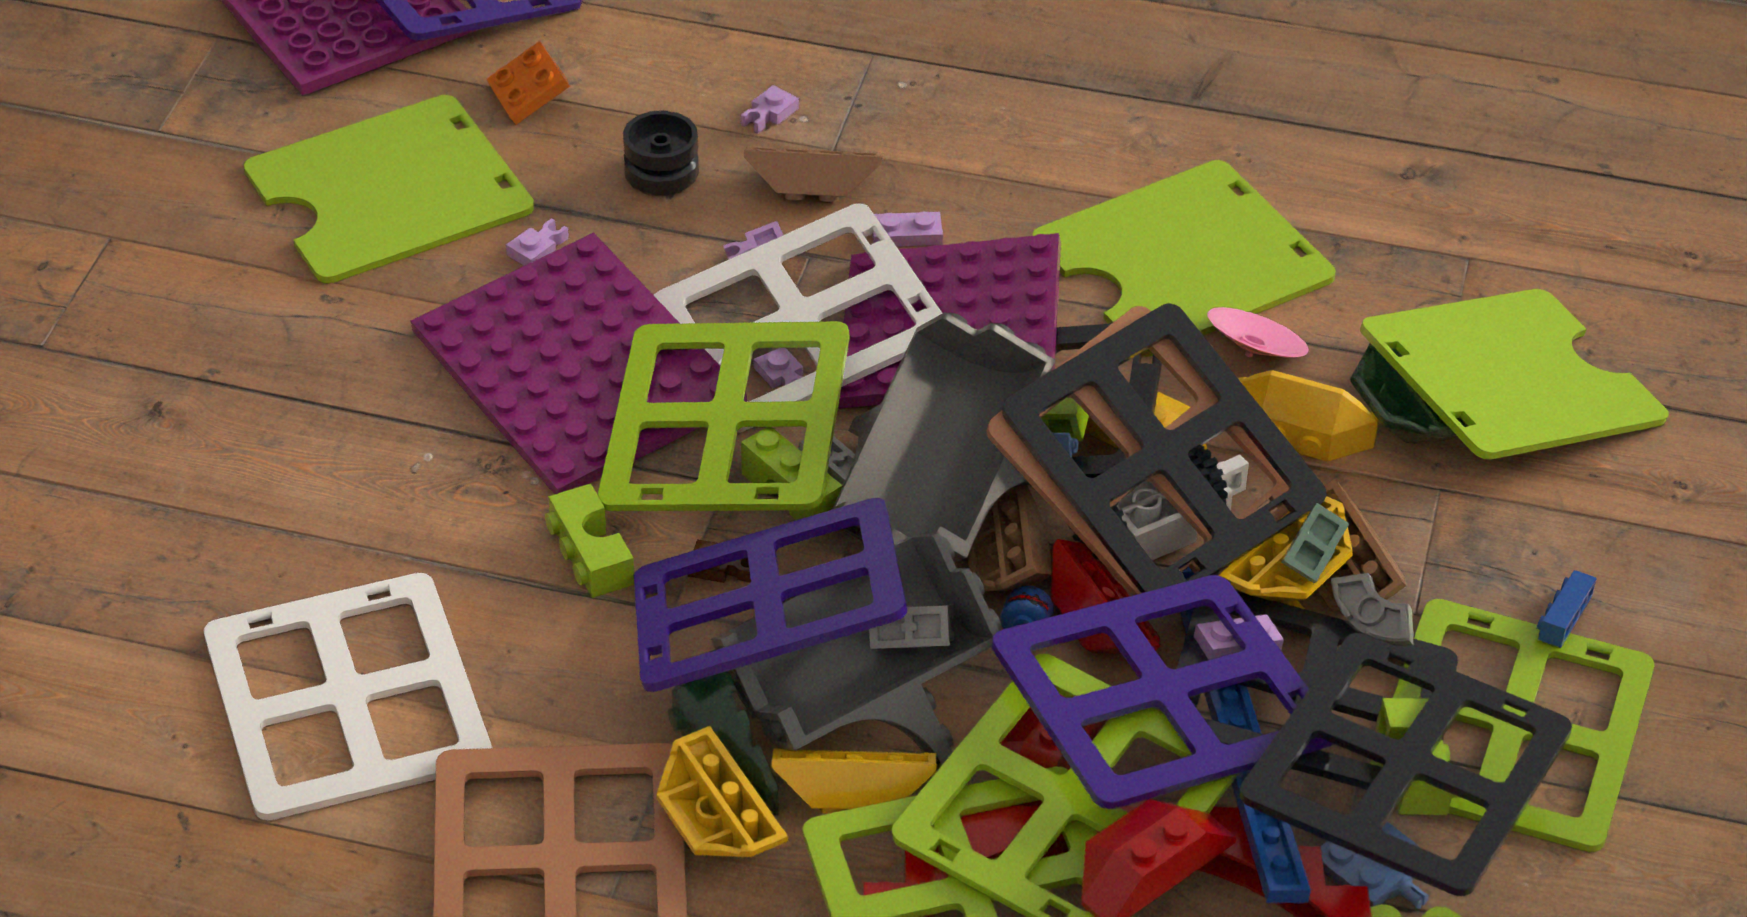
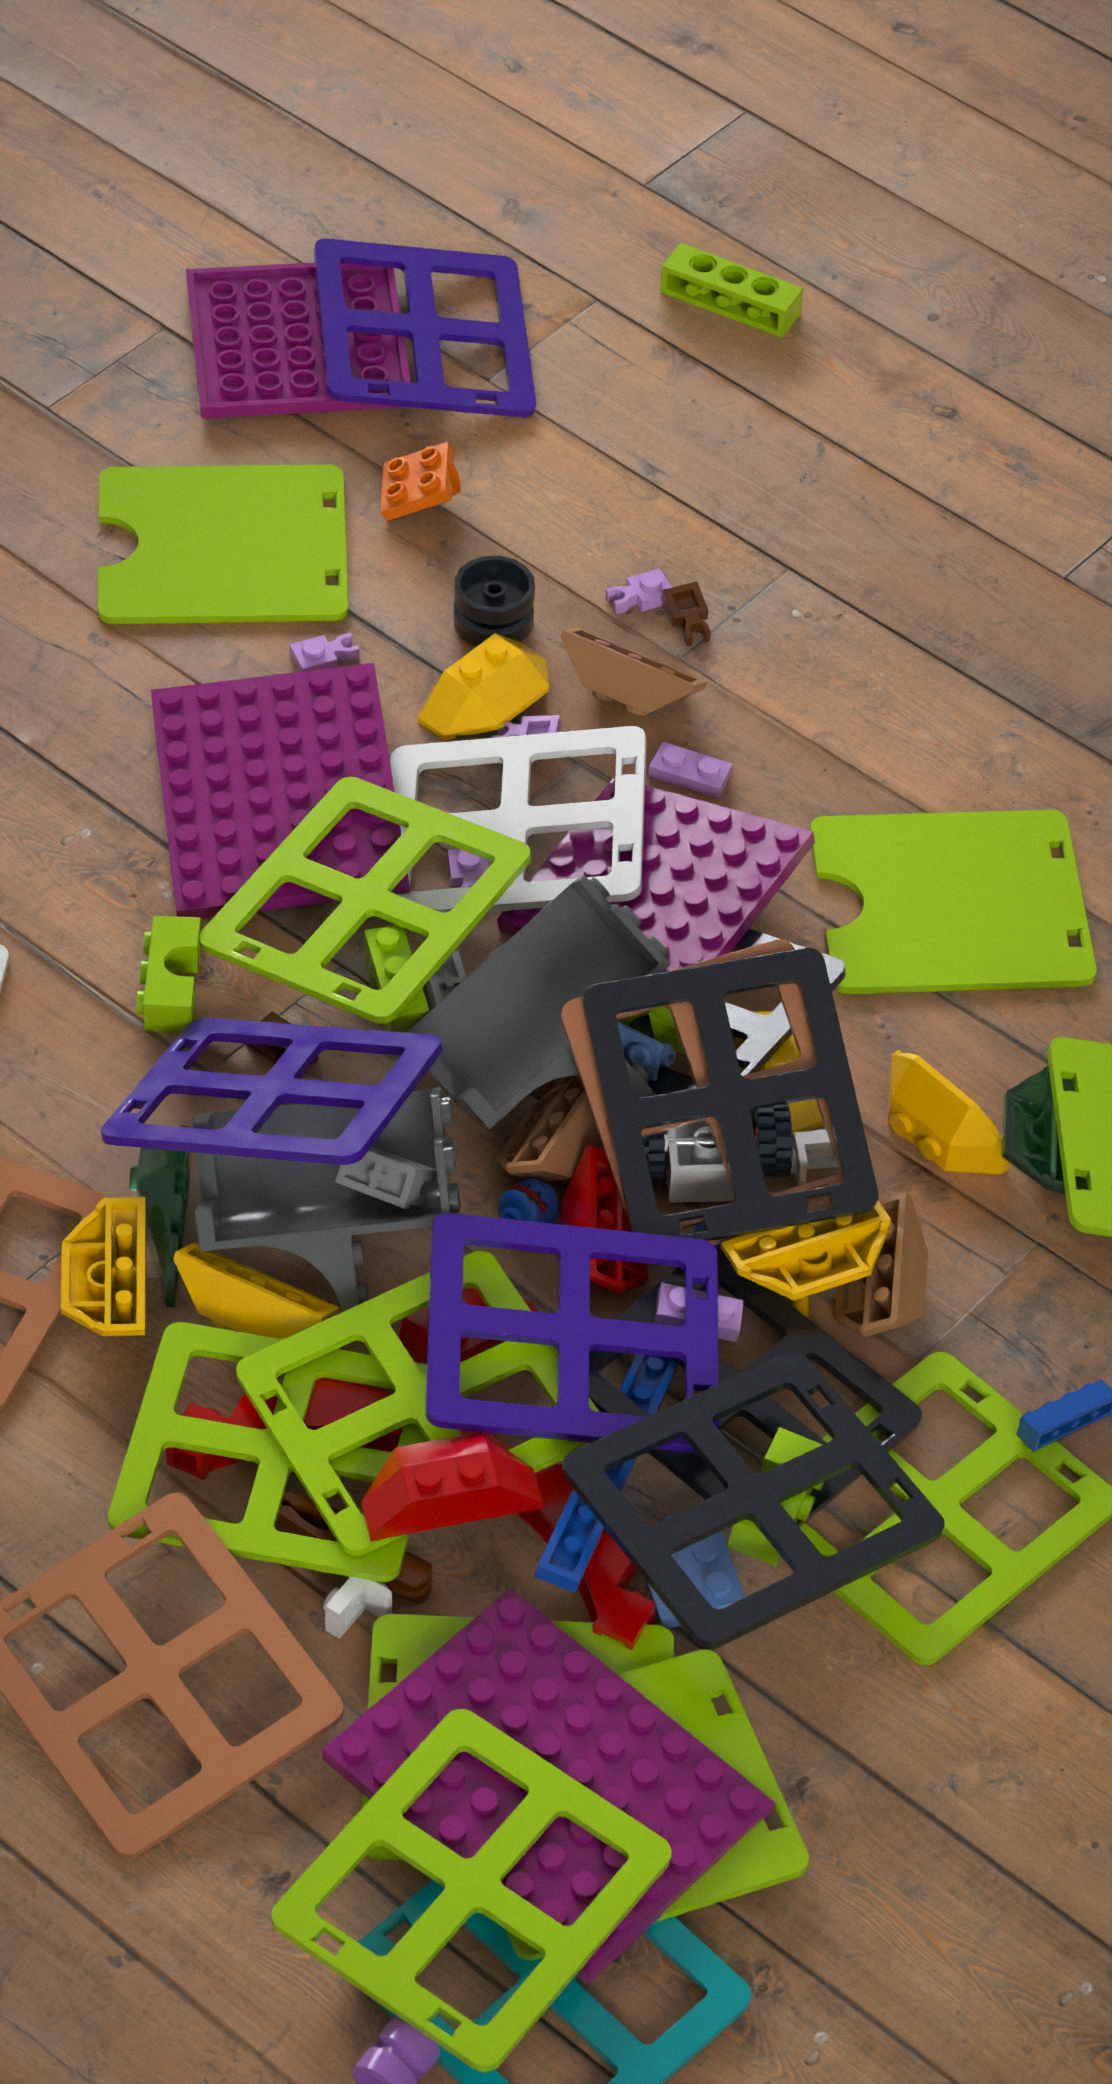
camera: 25 degrees right, 5 degrees up
(698, 225) = (485, 689): none -> yellow wedge
(819, 107) = (687, 608): none -> reddish brown plate
(1257, 333) = (958, 1009): bright pink hat -> none
(1315, 543) = (830, 1248): sand green slope -> none
(1371, 612) = (853, 1339): light grey tile -> none

